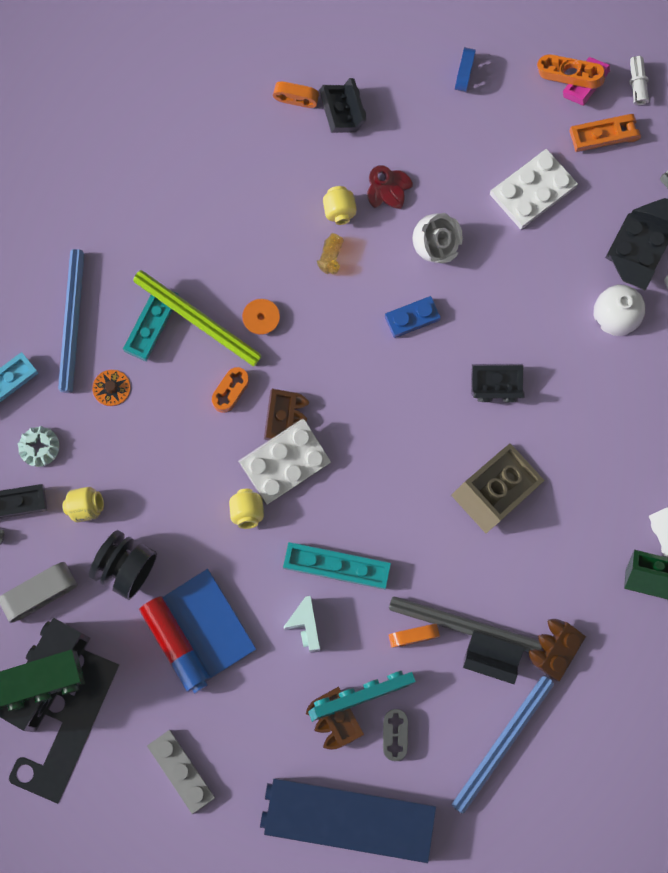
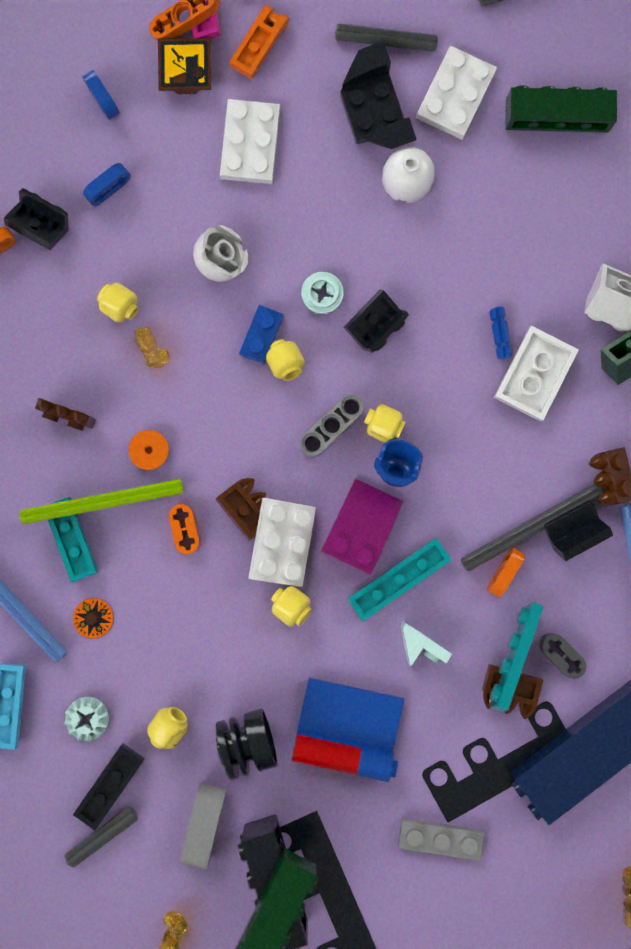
camera: 50 degrees left, 10 degrees up
(236, 249) = (55, 411): none -> reddish brown plate
(259, 766) = (490, 776): none -> black piece
(347, 505) = (362, 526): none -> magenta slope
(389, 190) = (142, 251): dark red plate -> none
(408, 414) = (339, 415): none -> light grey beam
(410, 127) = (106, 184): none -> blue beam
(410, 347) = (285, 360): none -> light yellow head
(415, 486) = (398, 463): none -> blue helmet
(433, 453) = (384, 423): none -> light yellow head
(484, 319) = (316, 282): none -> light aqua gear
(497, 488) = (456, 402): dark tan slope -> none
(539, 101) = (184, 65): none -> piece
(573, 524) = (536, 373): none -> white plate
(577, 474) = (500, 332): none -> blue axle

